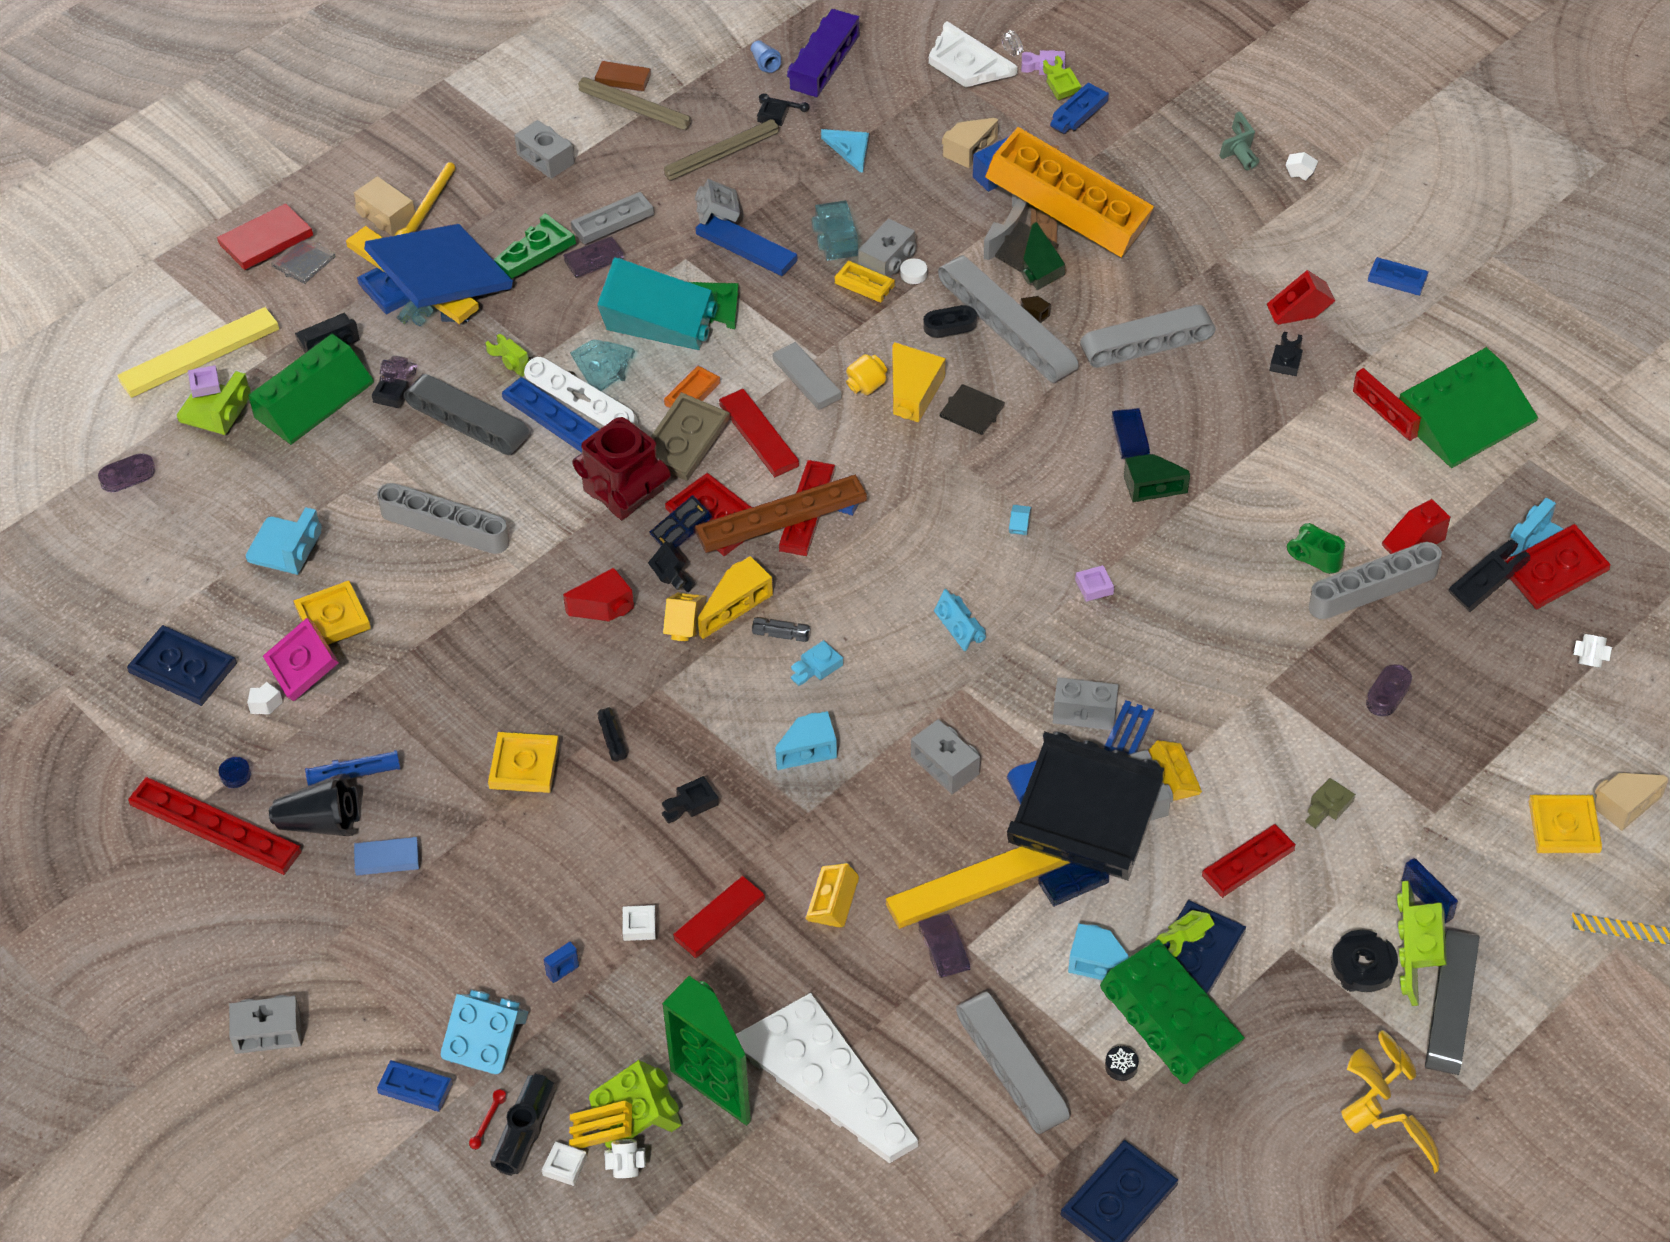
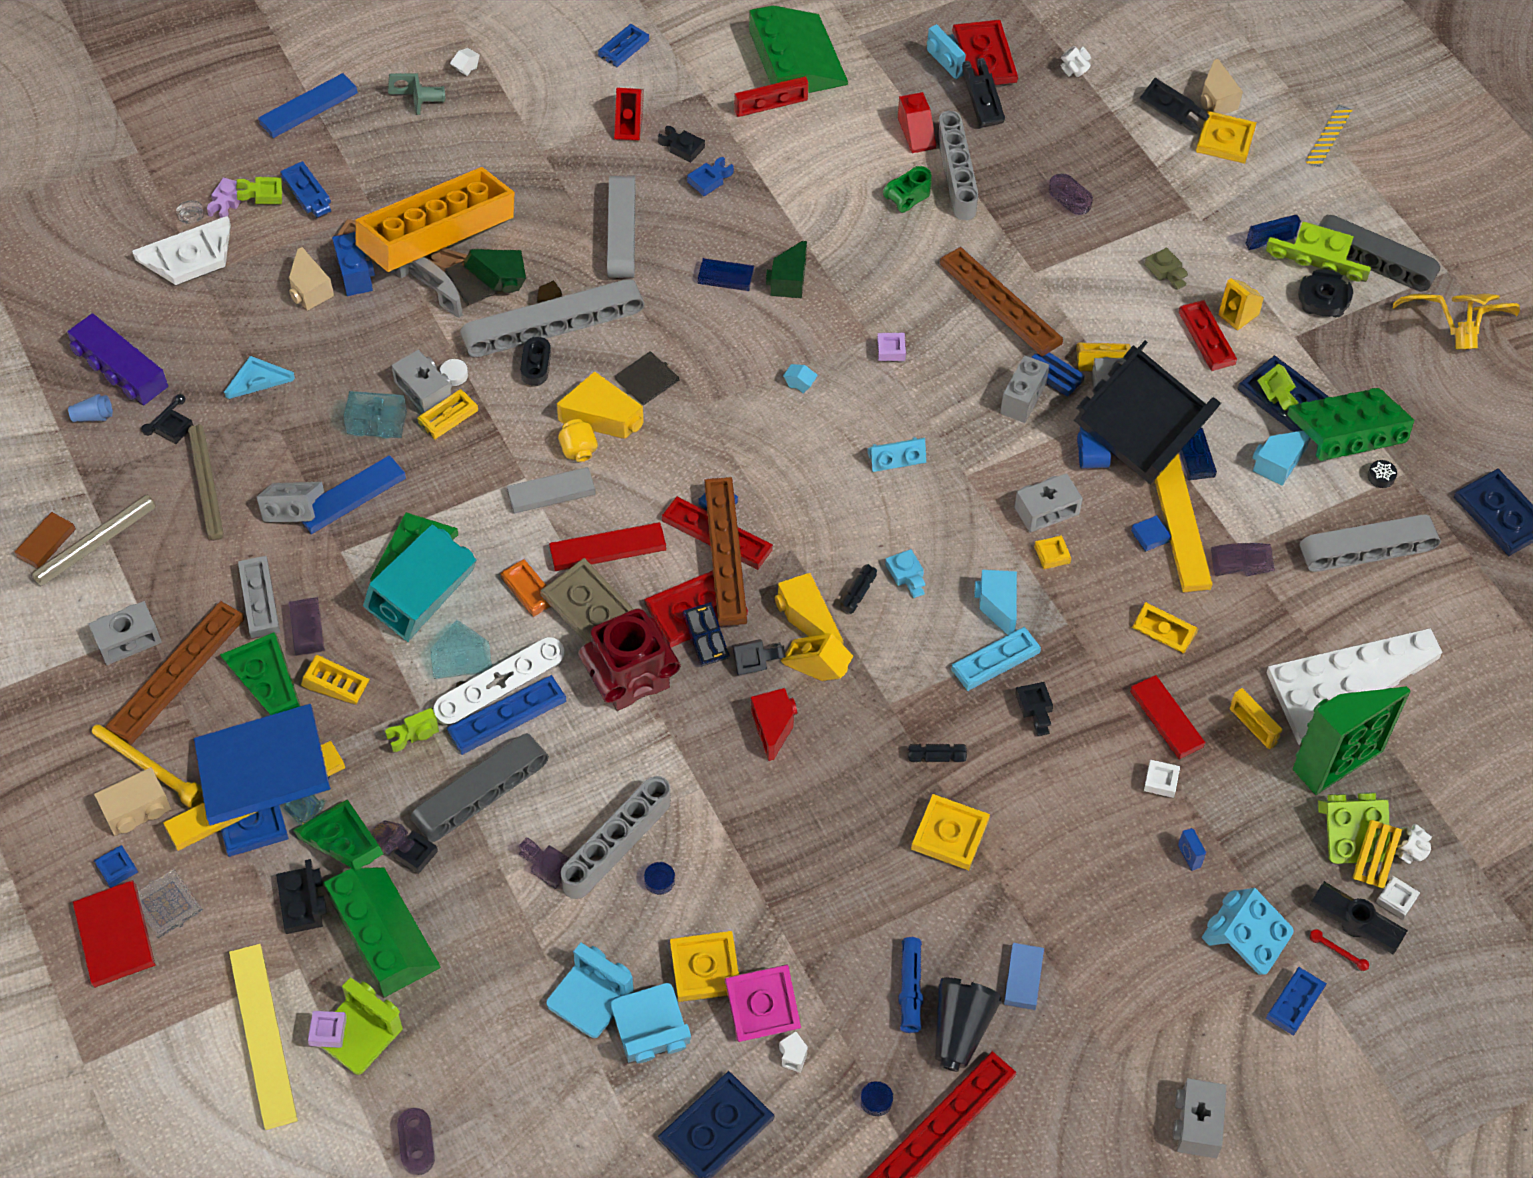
camera: 75 degrees left, 5 degrees up
(262, 590) = (650, 1023): none -> medium azure bracket
(327, 219) = (116, 866): none -> blue tile
(386, 337) = (341, 835): none -> green wing
(411, 476) = (546, 863): none -> clear purple plate
(414, 562) = (659, 878): none -> clear blue tile
(520, 194) = (175, 673): none -> dark orange tile
(545, 274) = (321, 664): none -> yellow slope
(740, 759) = (996, 658): none -> medium azure tile
(740, 986) = (1255, 718): none -> yellow tile
(890, 778) = (1052, 552): none -> yellow tile
(947, 857) = (1151, 533): none -> blue tile
(1186, 79) = (307, 105): none -> blue tile
(1201, 662) = (1001, 301): none -> dark orange tile
(1249, 384) = (708, 178): none -> blue plate
(1300, 873) = (1240, 303): none -> yellow slope
(1578, 758) = (1172, 104): none -> black hinge

